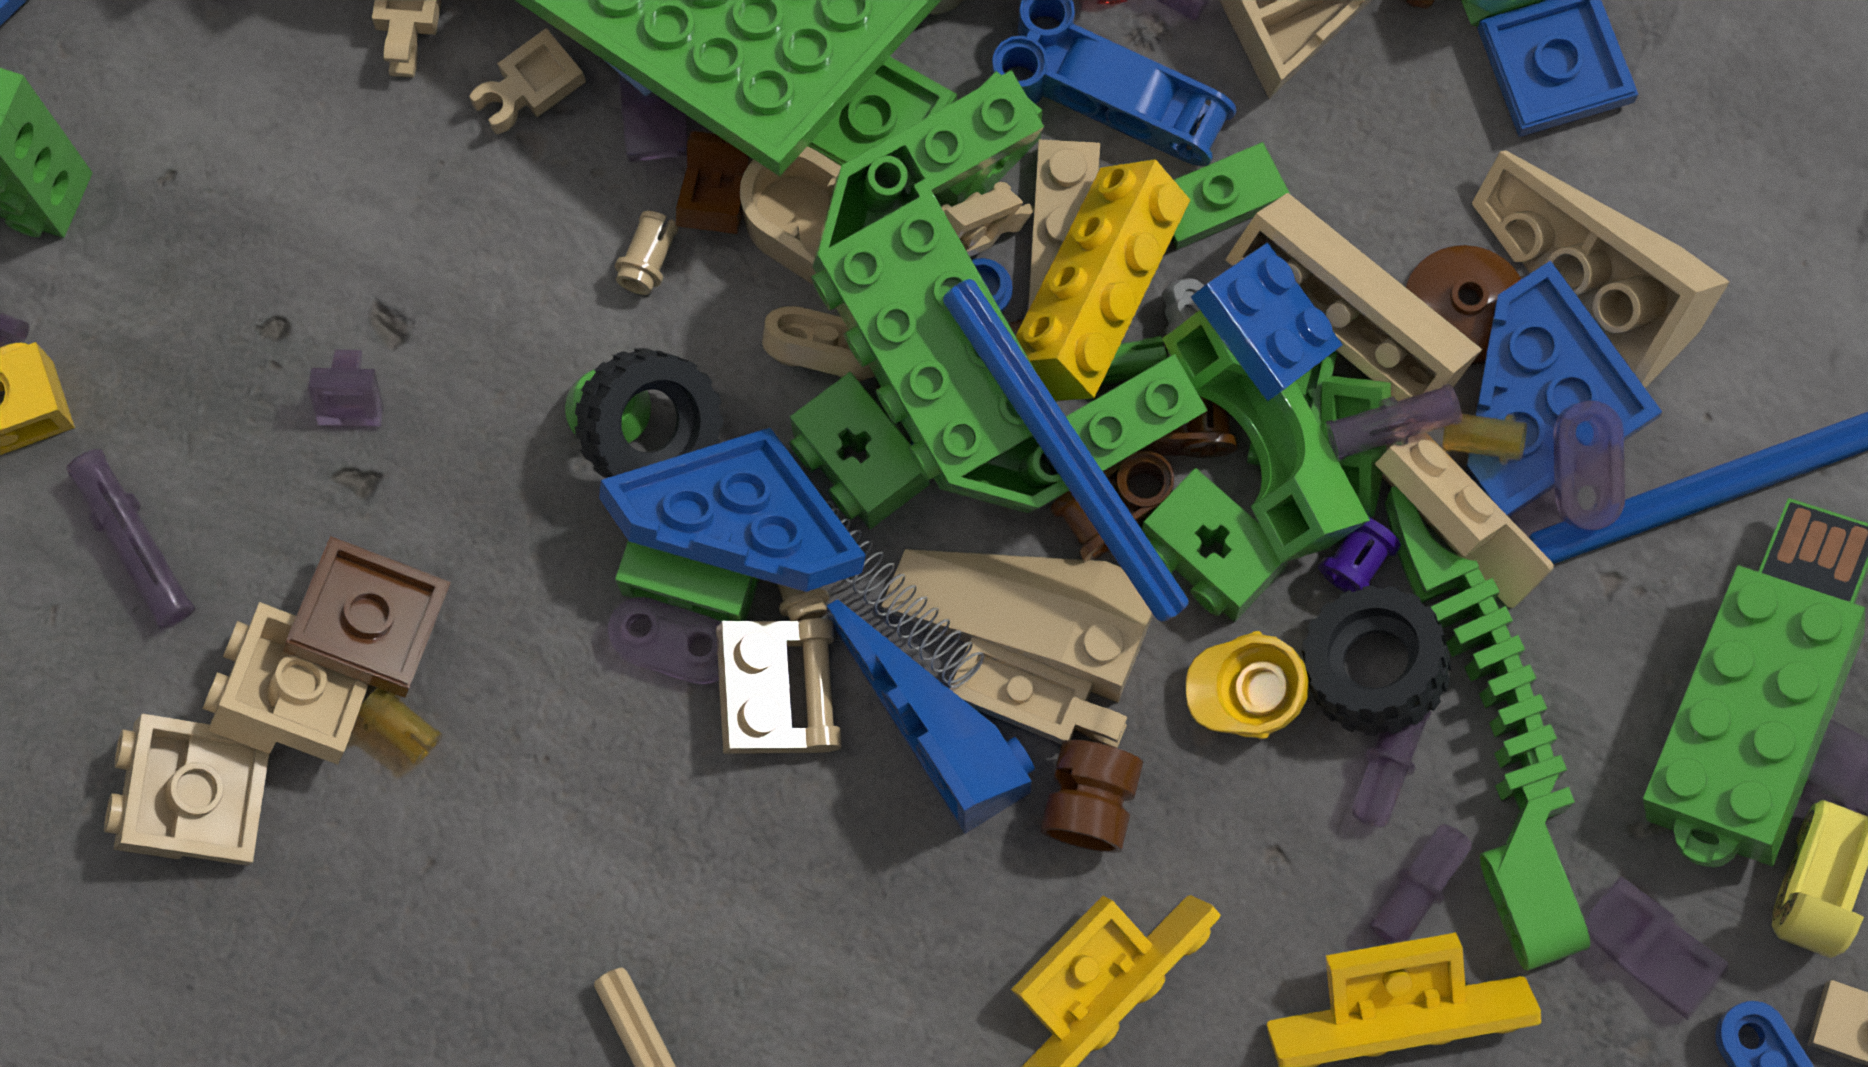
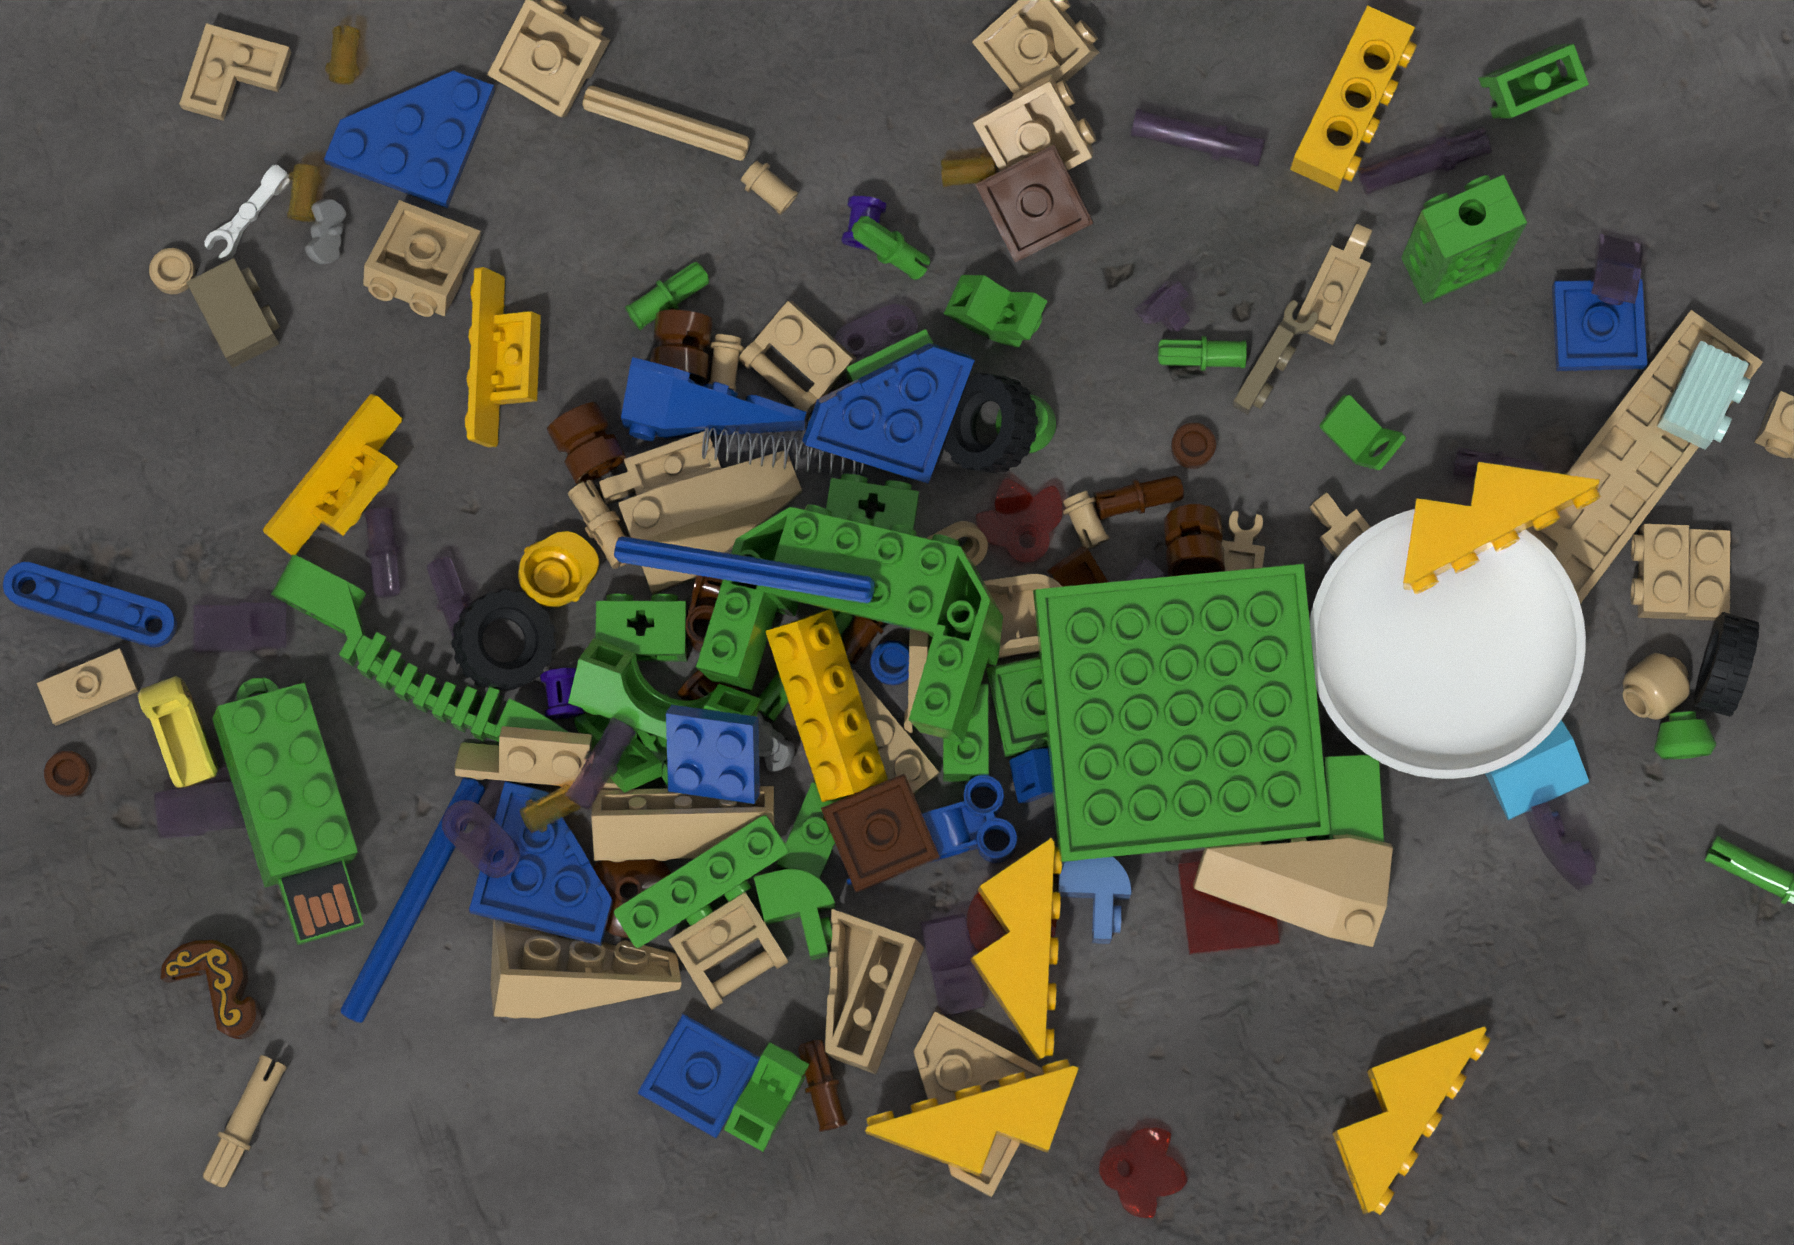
camera: 135 degrees right, 5 degrees up
(157, 256) = (1336, 286): none -> tan plate
(293, 94) = (1360, 434): none -> bright green bracket
(296, 237) = (1275, 355): none -> dark tan plate
(357, 312) = (1202, 353): none -> bright green axle
(463, 235) = (1193, 445): none -> reddish brown tile
(520, 536) = (995, 311): none -> bright green brick
(564, 705) = (890, 247): none -> bright green axle
(564, 769) = (860, 207): none -> dark purple bush
(568, 228) = (1138, 496): none -> reddish brown axle
(580, 100) = (1193, 540): none -> reddish brown wheel
(626, 907) = (768, 187): none -> tan pin
(705, 322) = (1021, 514): none -> clear red plate
(849, 887) = (667, 294): none -> bright green axle
(858, 755) = (725, 359): none -> tan pin
(891, 808) = (682, 341): none -> reddish brown wheel
(947, 49) = (1031, 775): none -> blue tile
(1153, 697) = (600, 521): none -> tan pin
(1161, 110) = (880, 833): none -> reddish brown tile
(1302, 141) = (793, 895): none -> bright green brick
(1393, 217) = (701, 881): none -> bright green bracket
(1417, 172) = (719, 938): none -> tan plate

